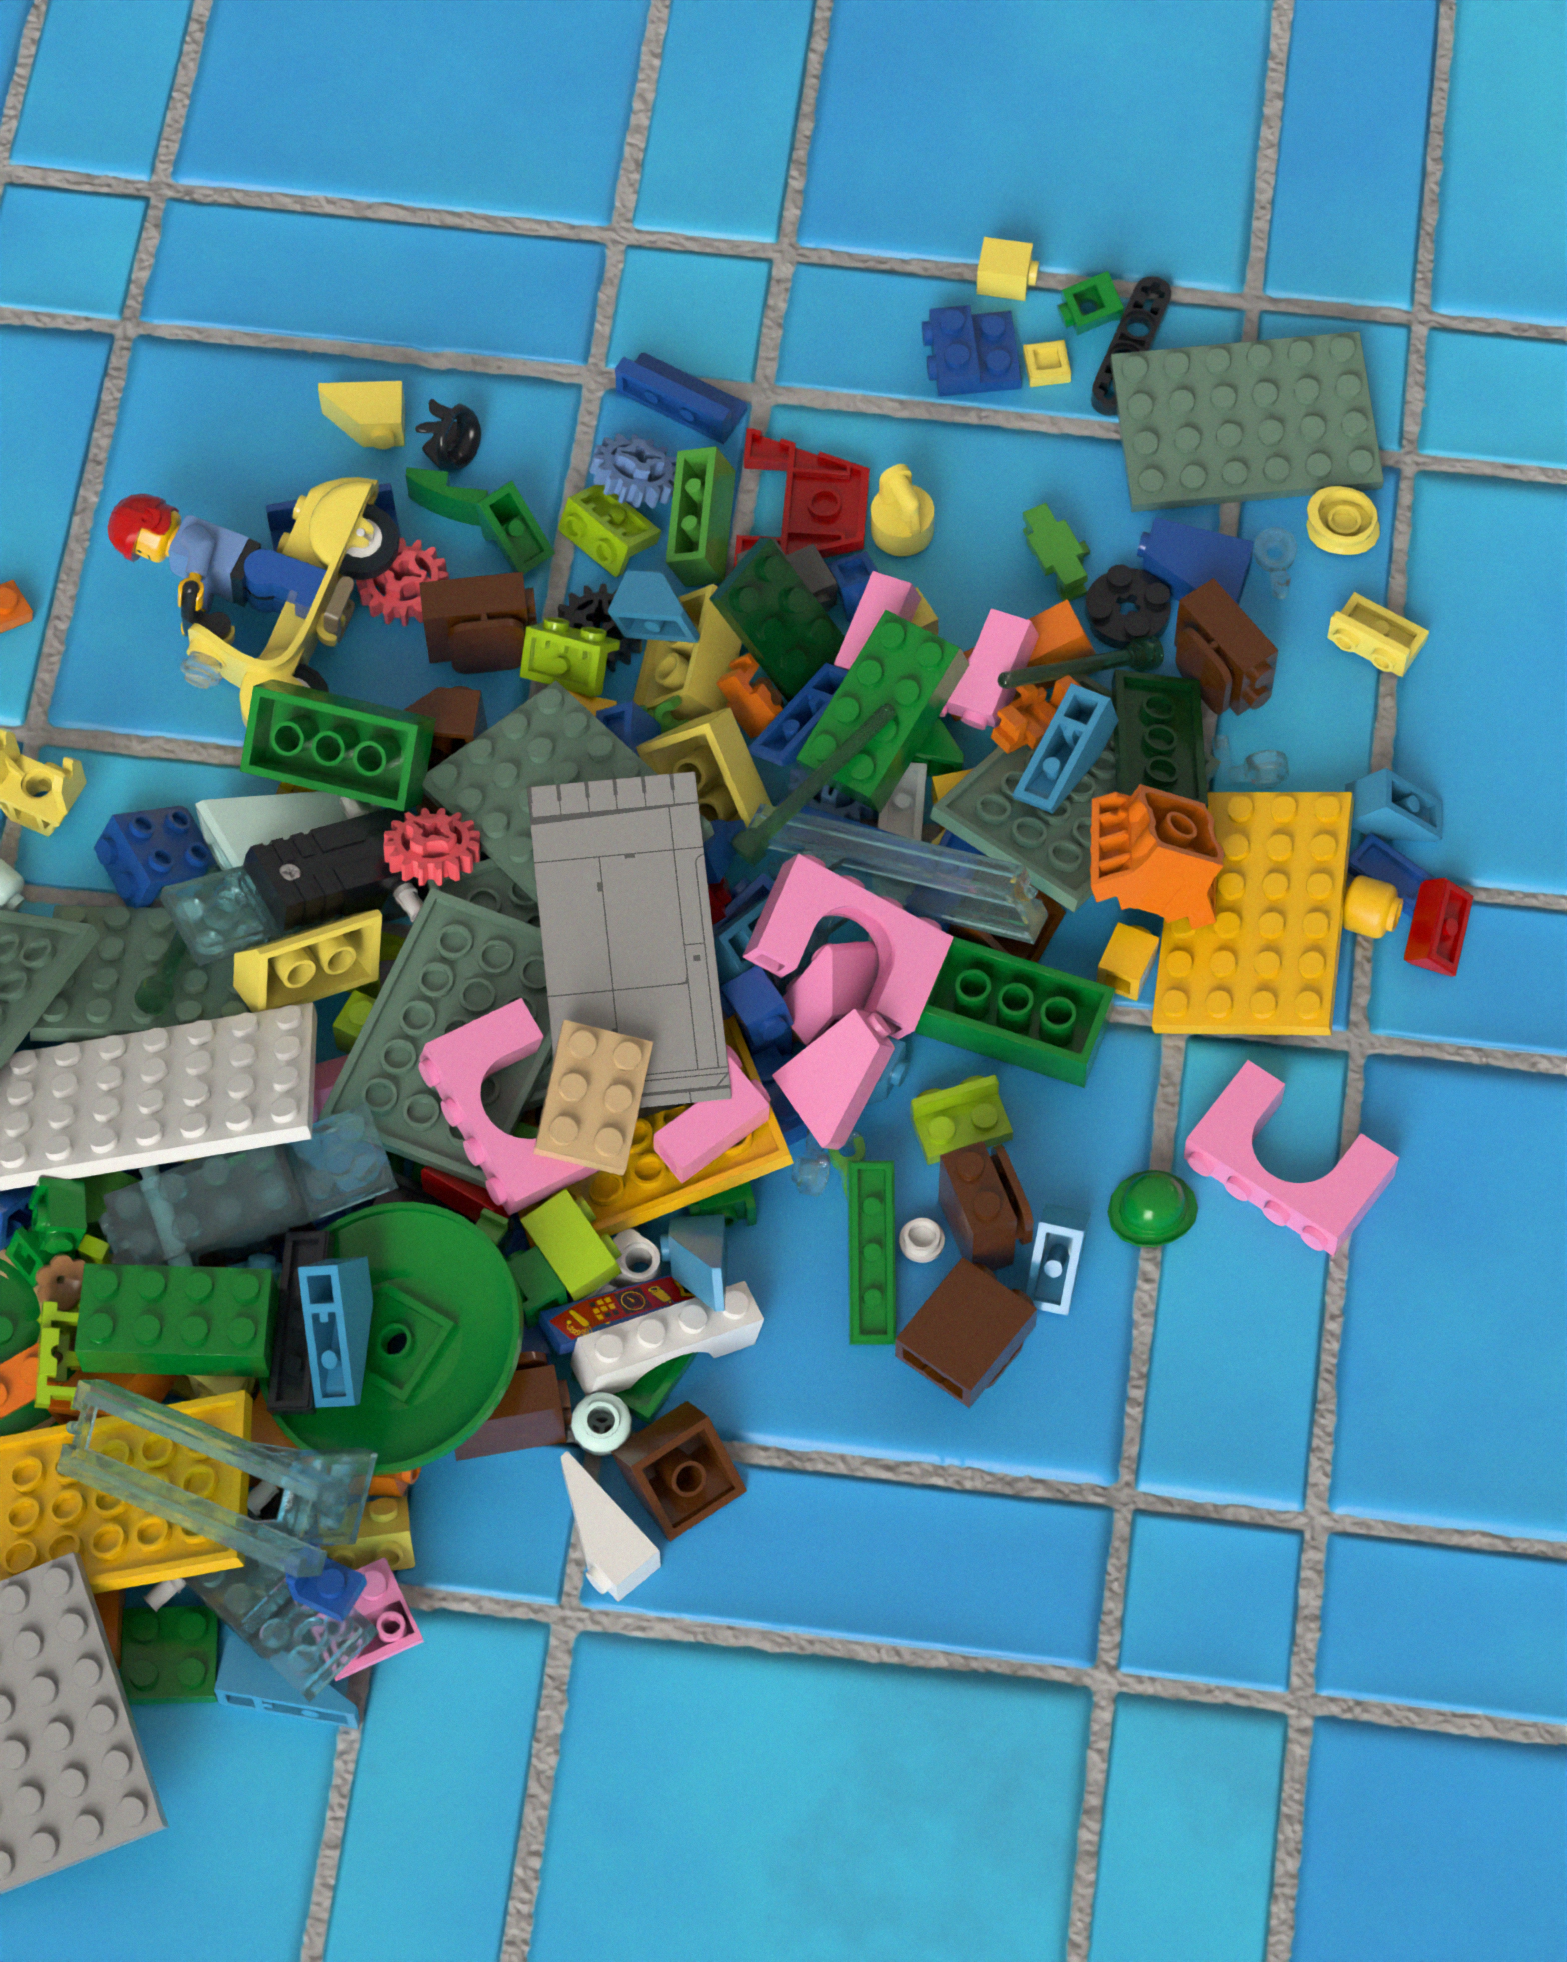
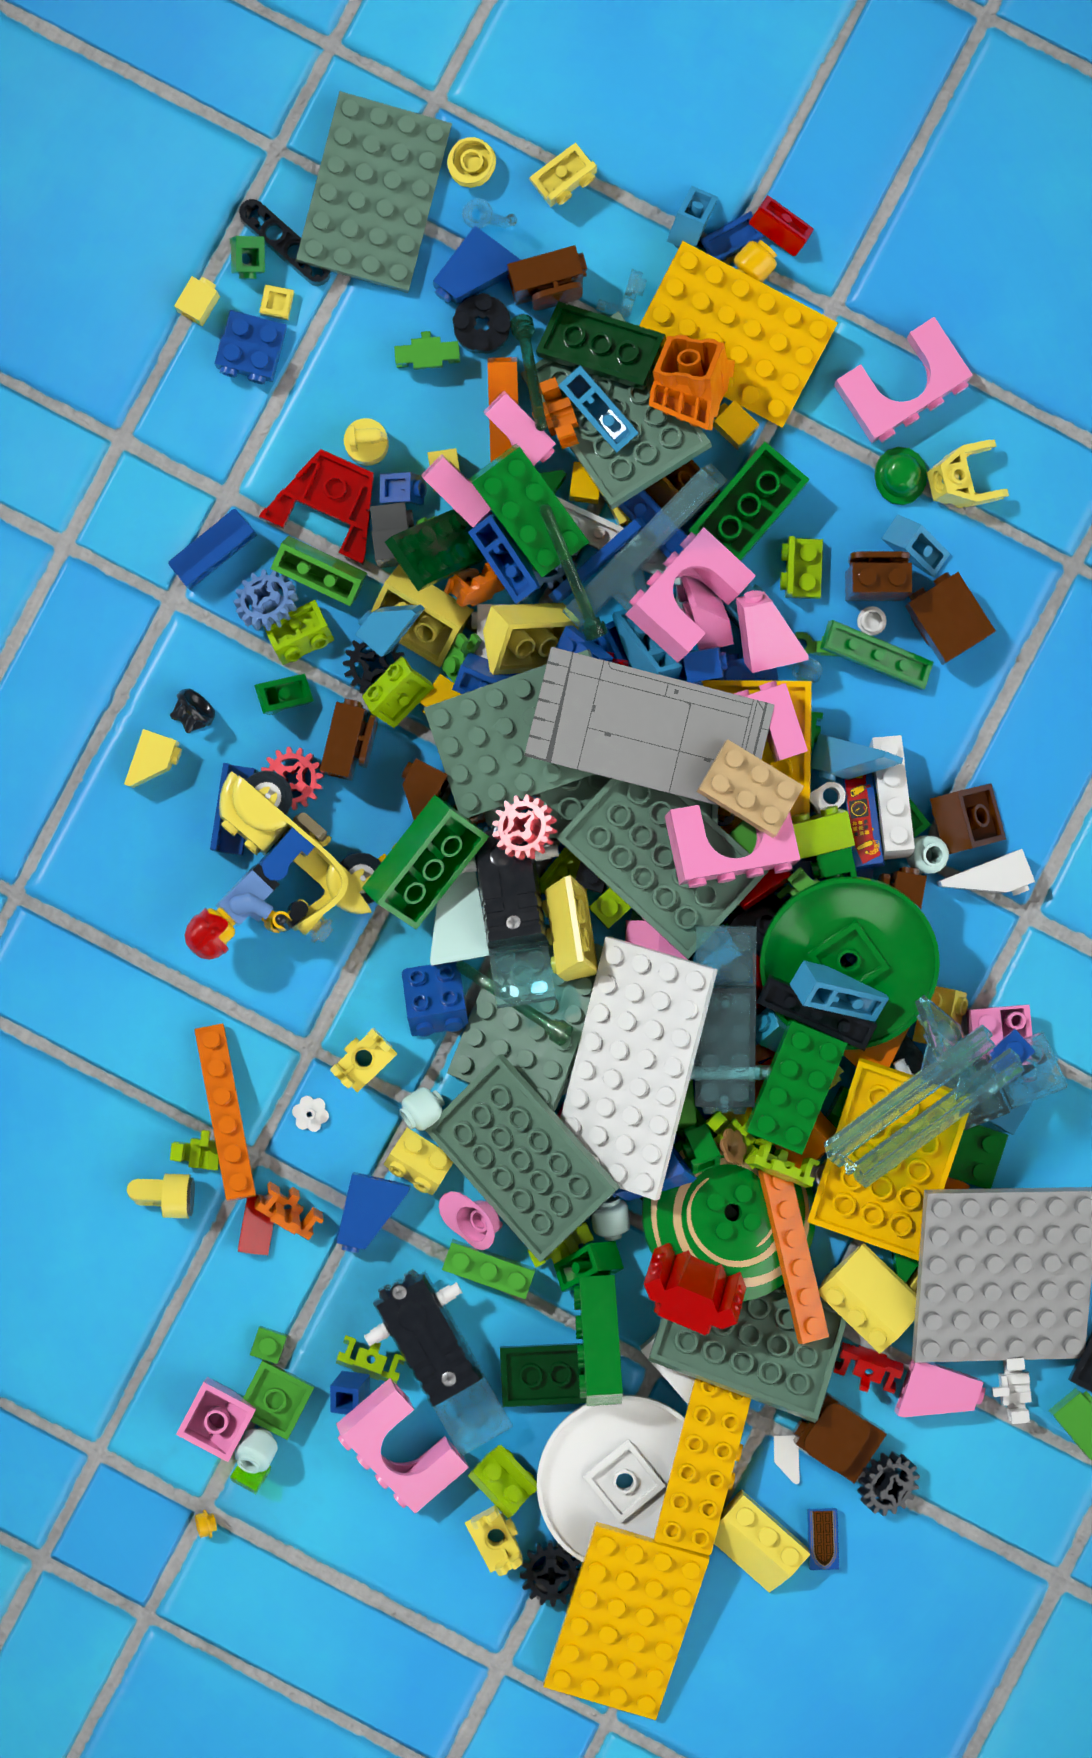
camera: 70 degrees left, 25 degrees up
(59, 1214) = (696, 1136): green brick -> none
(433, 491) = (230, 735): green slope -> none
(1160, 1279) = (956, 491): none -> light yellow piece

